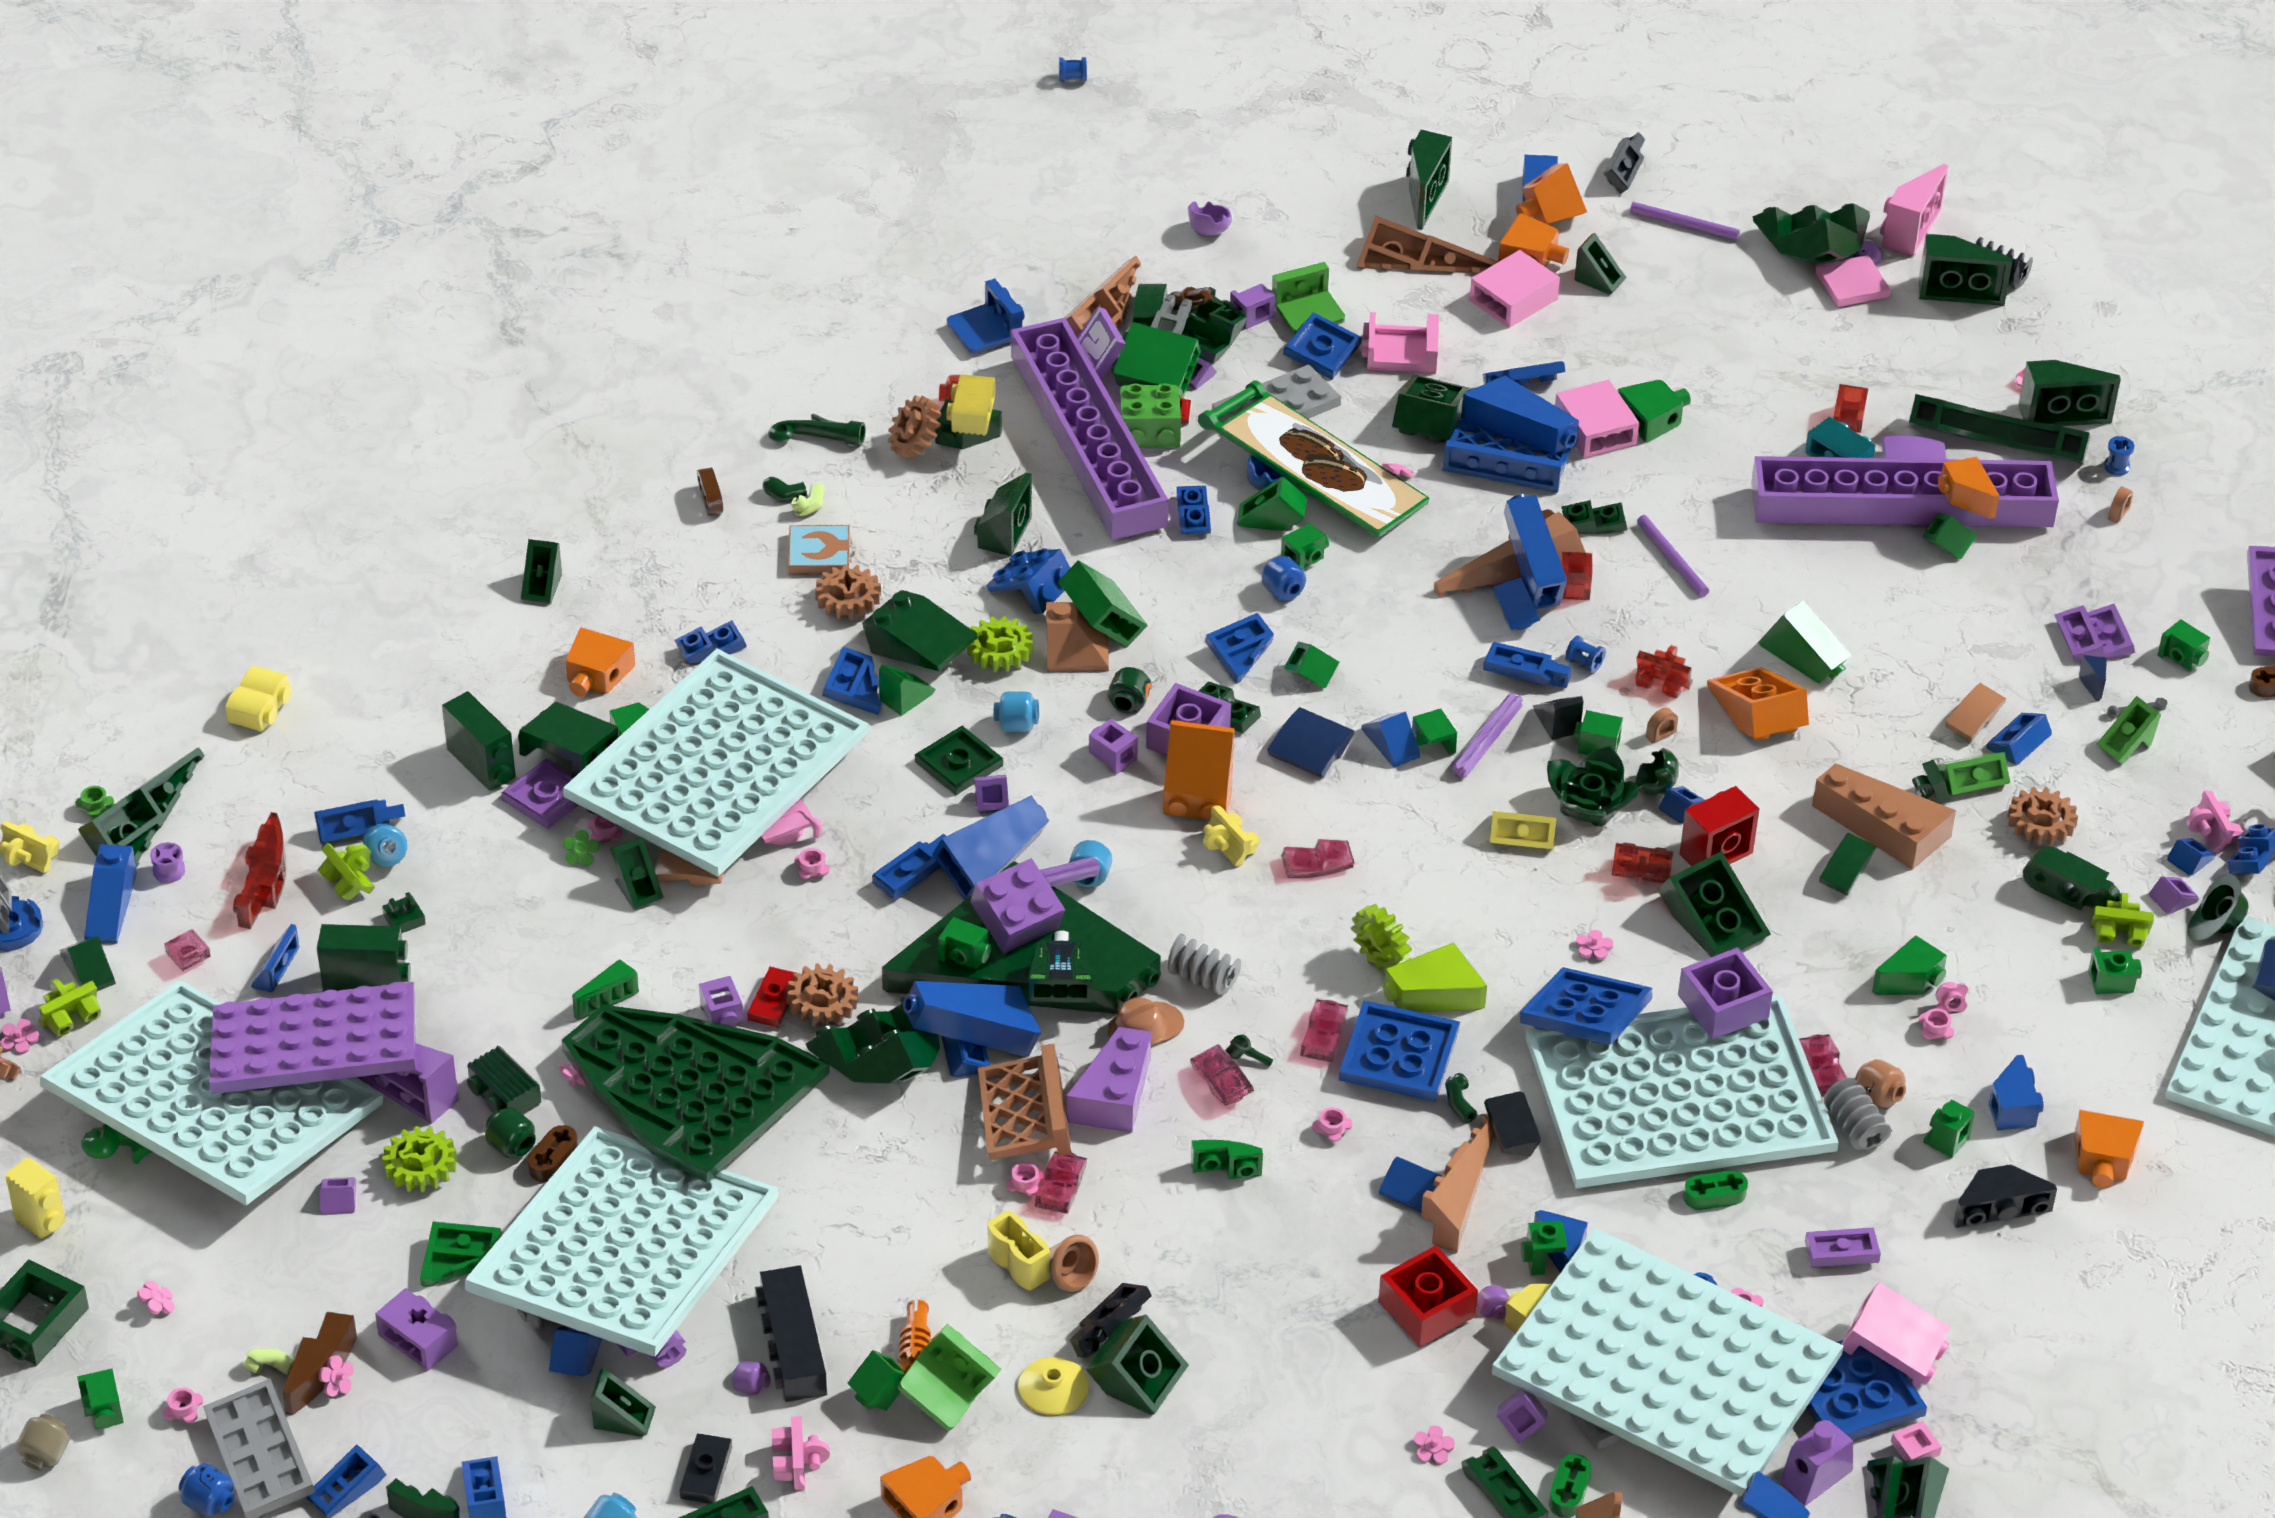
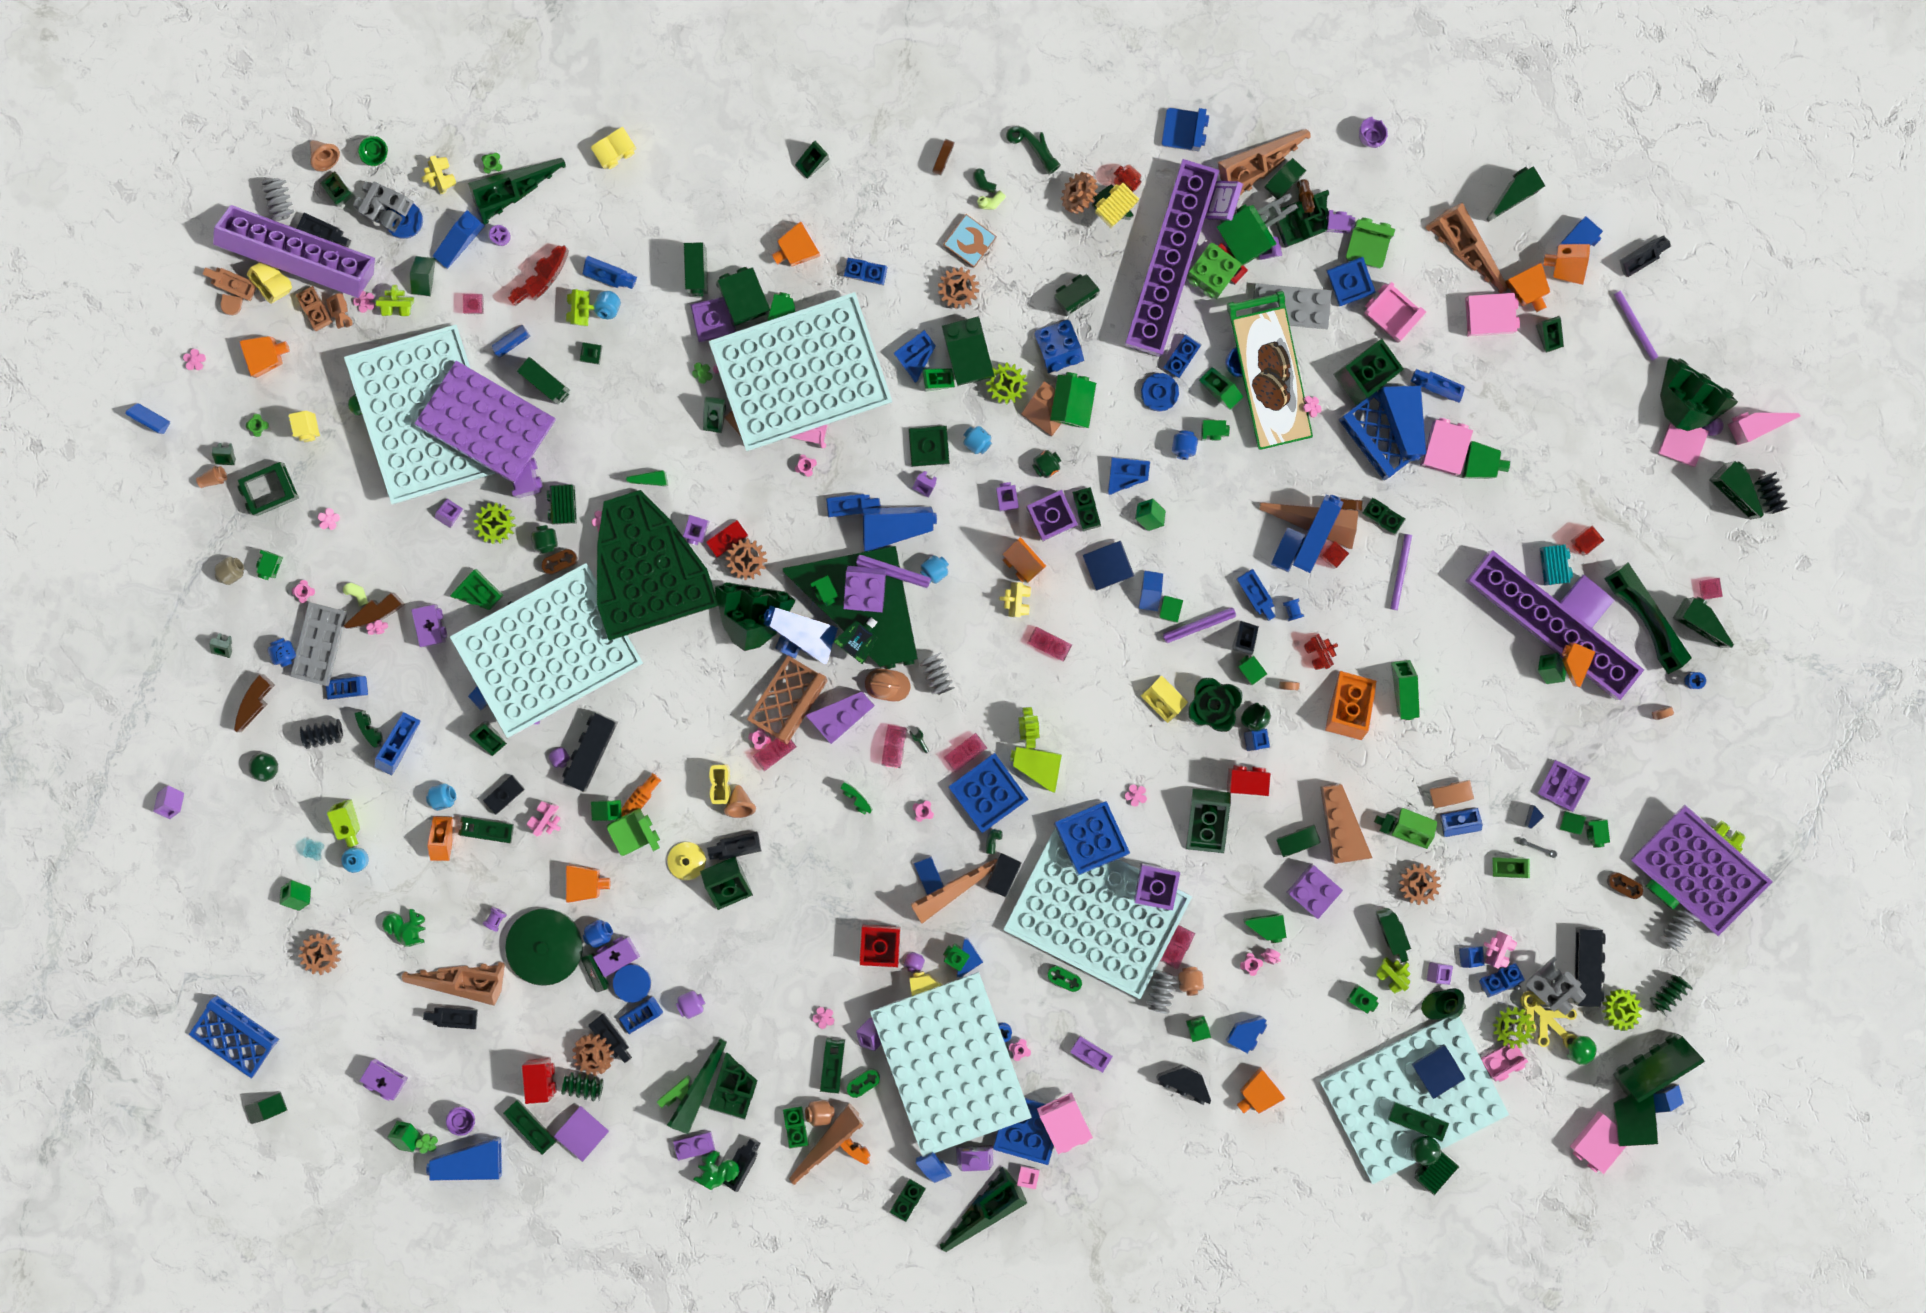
camera: 40 degrees right, 45 degrees up
(1200, 557) = (1160, 392): none -> blue tile
(1642, 863) = (1197, 767): clear red hips -> none
(1926, 897) = (1314, 891): none -> medium lavender brick
(2148, 658) = (1572, 823): none -> green slope

